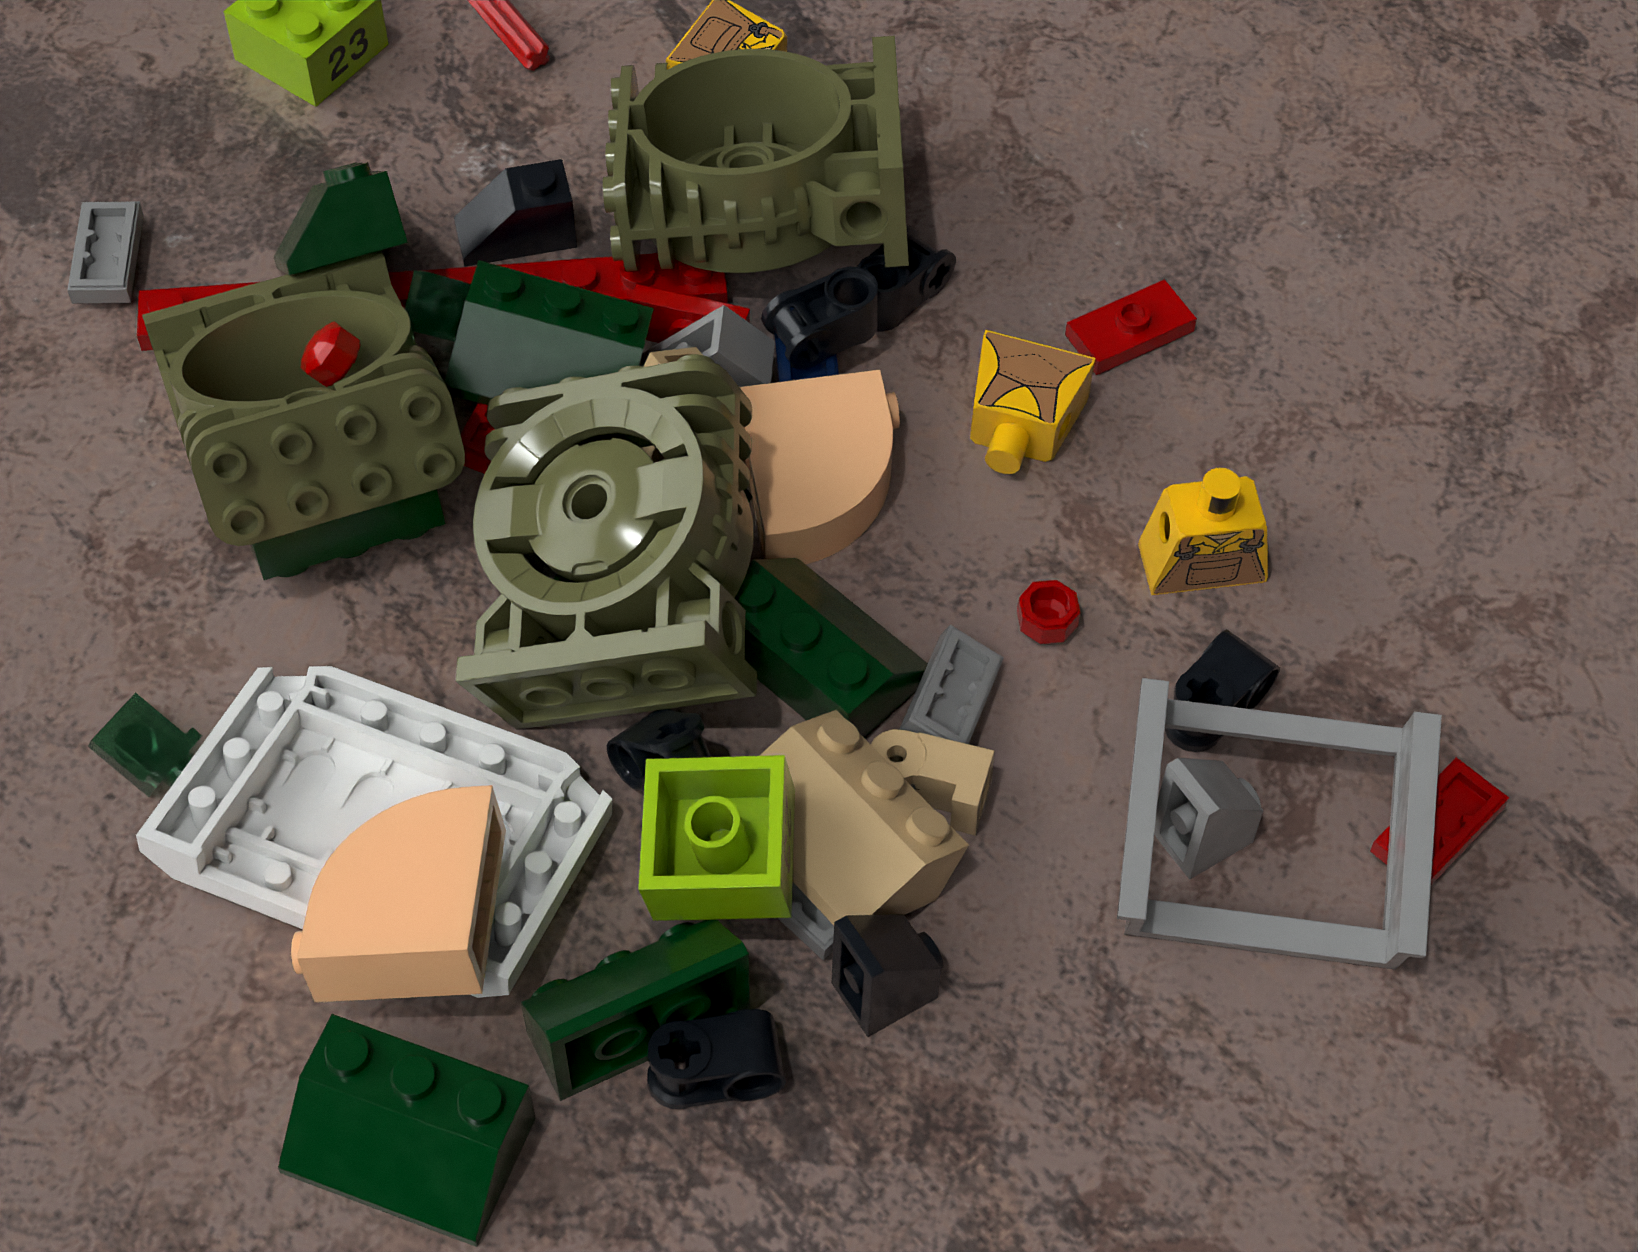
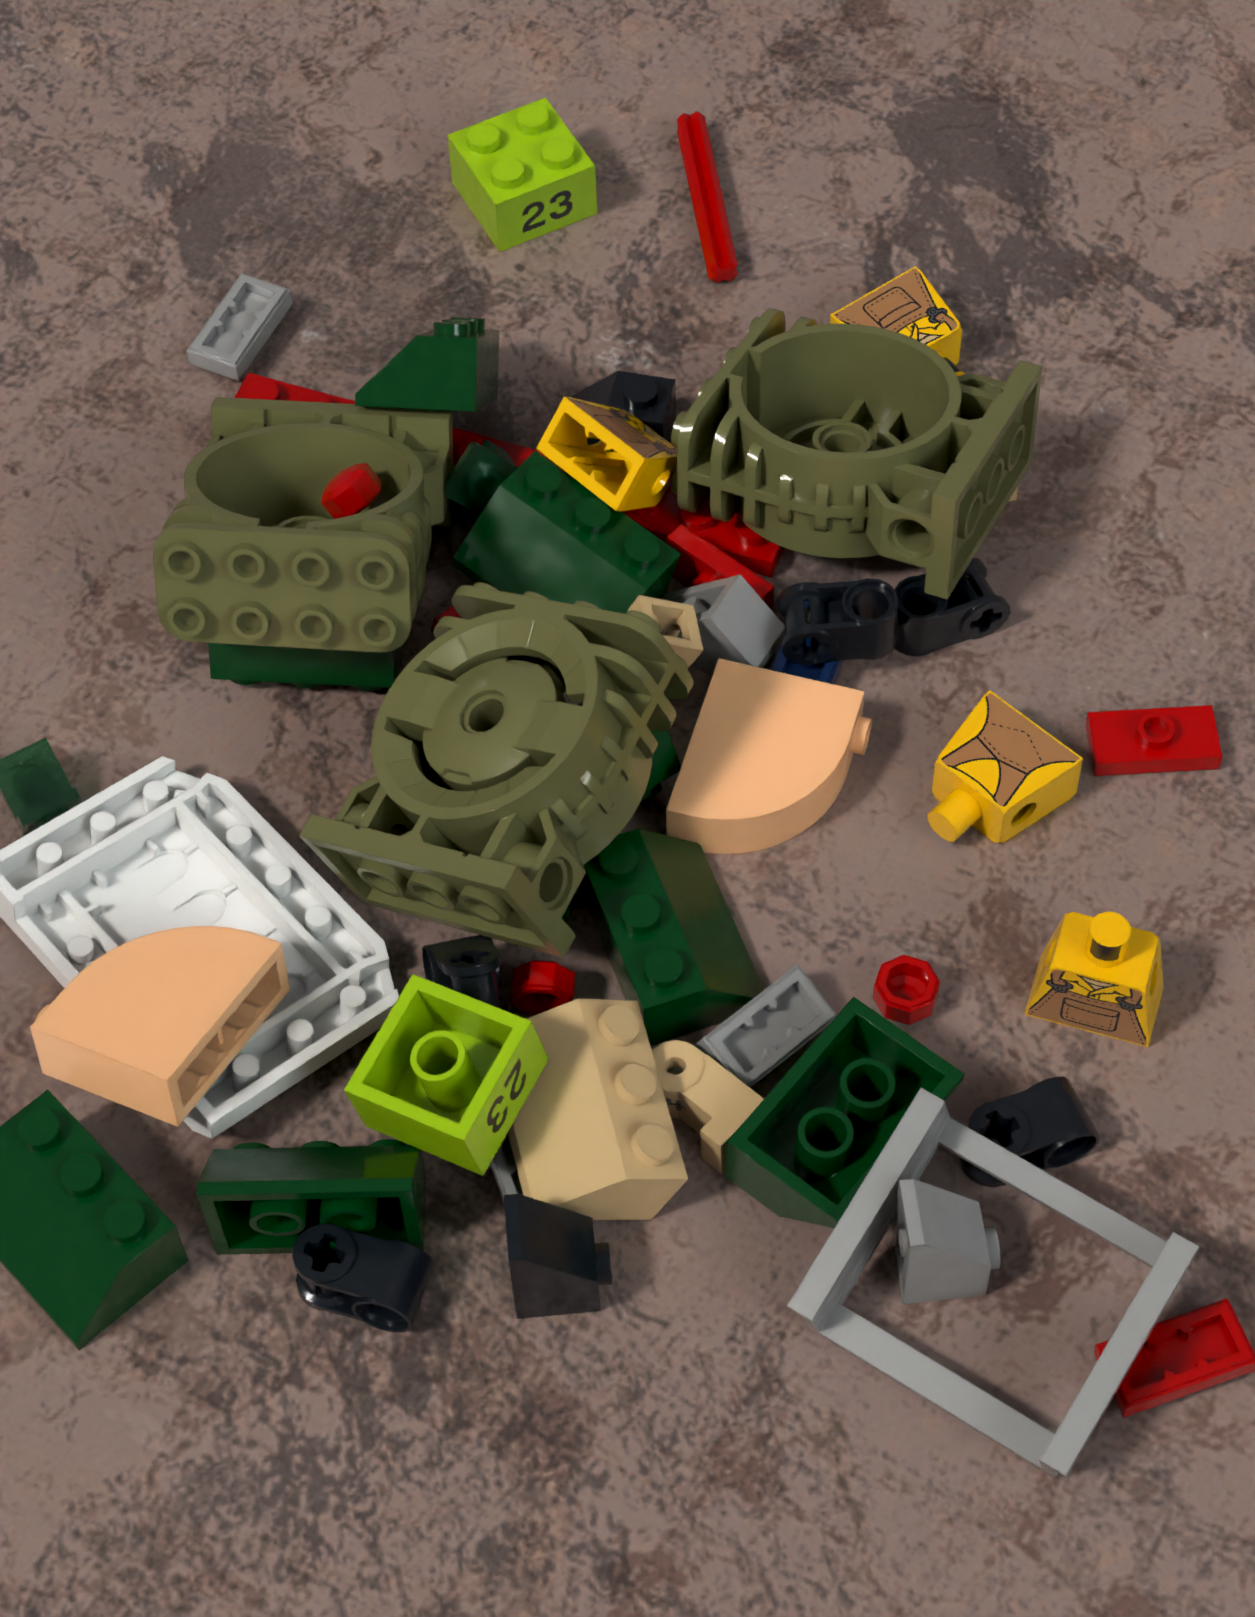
camera: 30 degrees right, 0 degrees up
(553, 244) = (627, 465): none -> yellow torso
(736, 733) = (542, 986): none -> red tile
(1067, 743) = (833, 1116): none -> dark green slope

